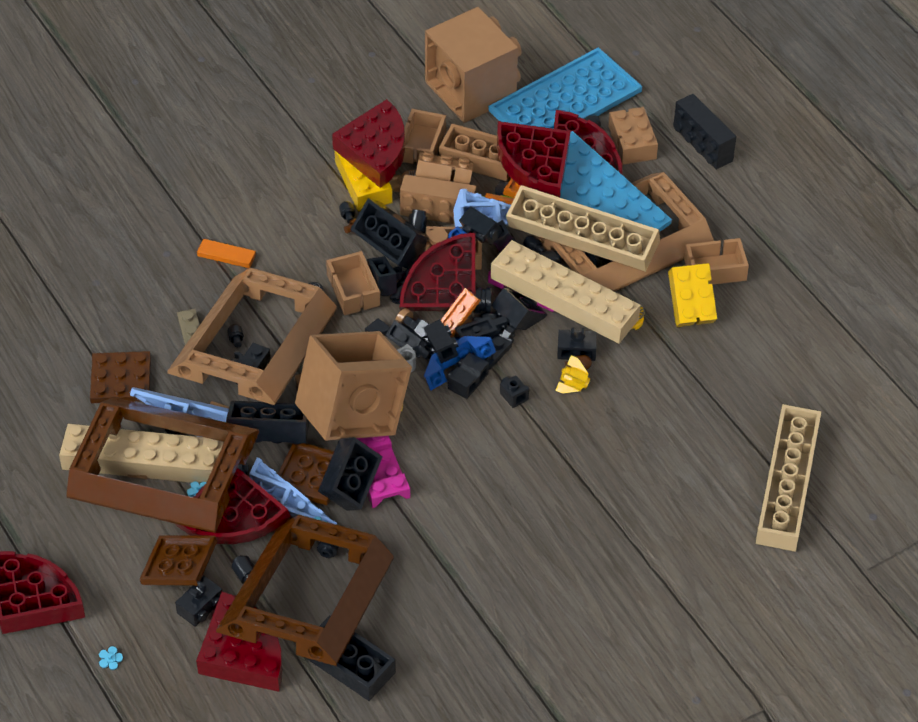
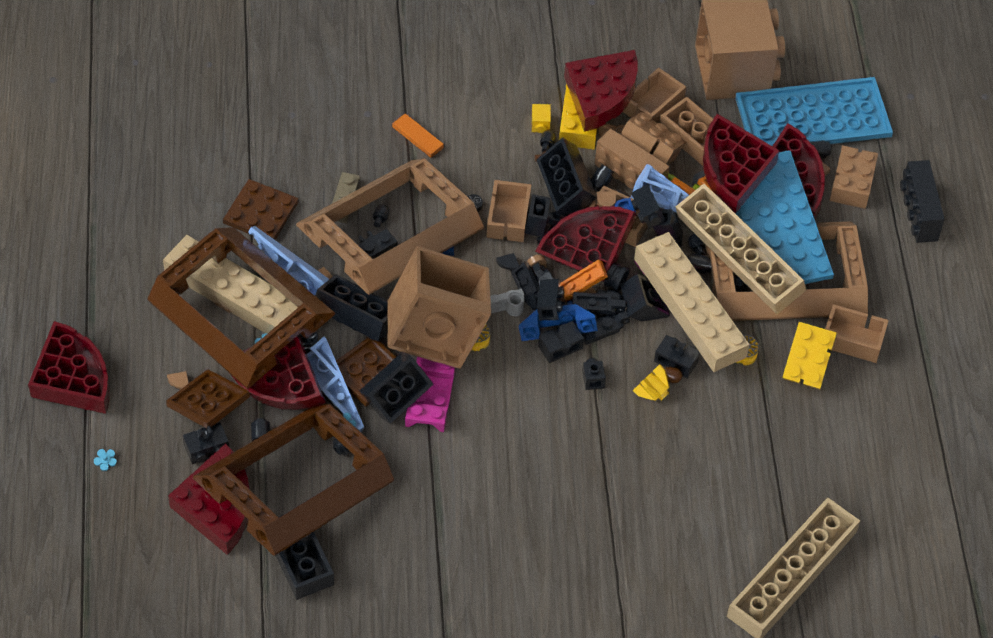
camera: 25 degrees right, 5 degrees up
(136, 557) = (178, 380): none -> medium nougat tile
(330, 194) = (541, 117): none -> yellow brick

